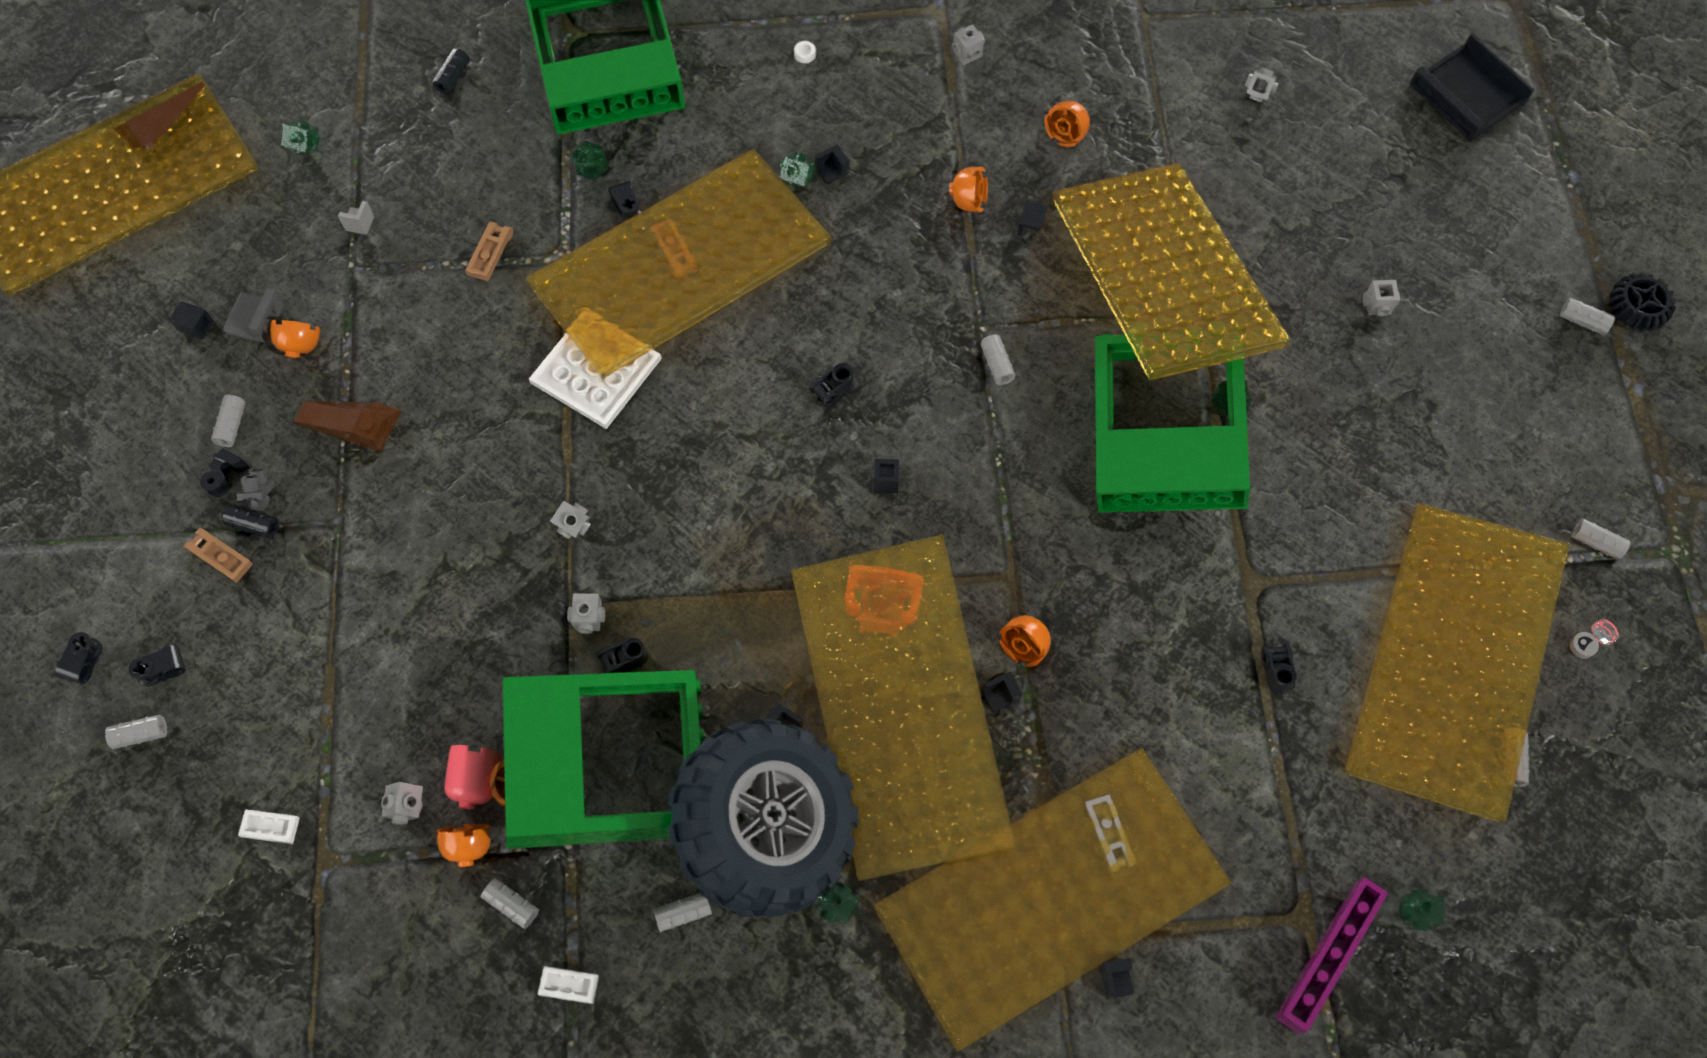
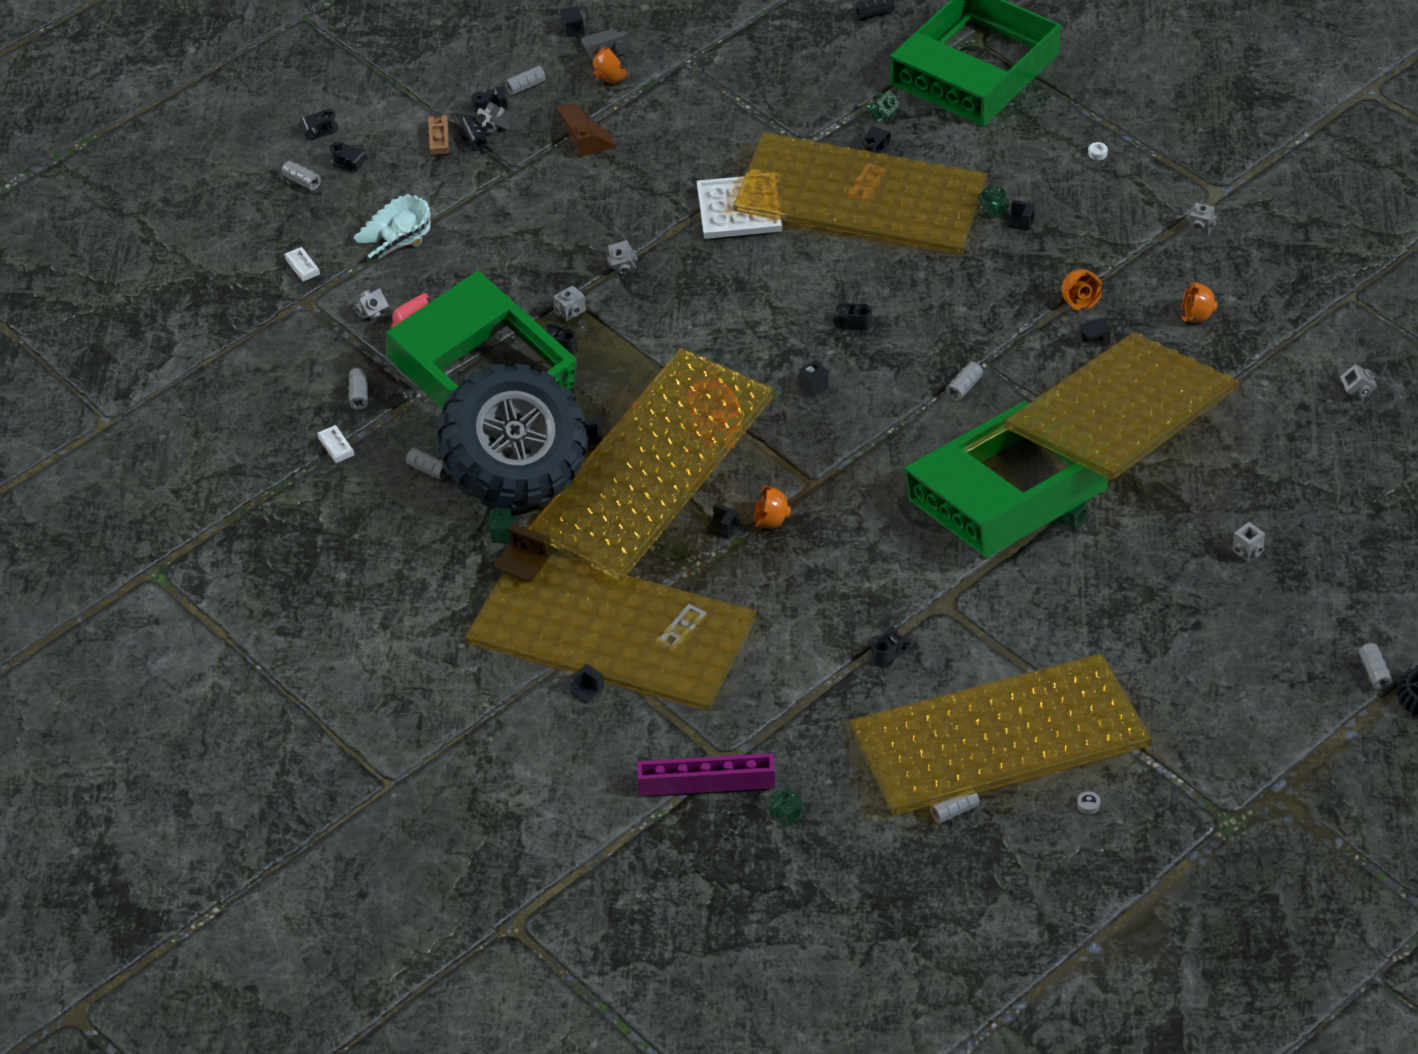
camera: 55 degrees right, 20 degrees down
(316, 687) = (399, 223): none -> light aqua piece
(357, 219) = (721, 41): light grey panel -> none
(464, 843) = (371, 343): orange cylinder -> none
(489, 251) = (767, 108): medium nougat plate -> none
(907, 917) = (525, 553): none -> dark brown bracket
(1600, 539) = (1185, 766): light grey axle -> none
(1605, 632) = (1110, 807): clear tile -> none

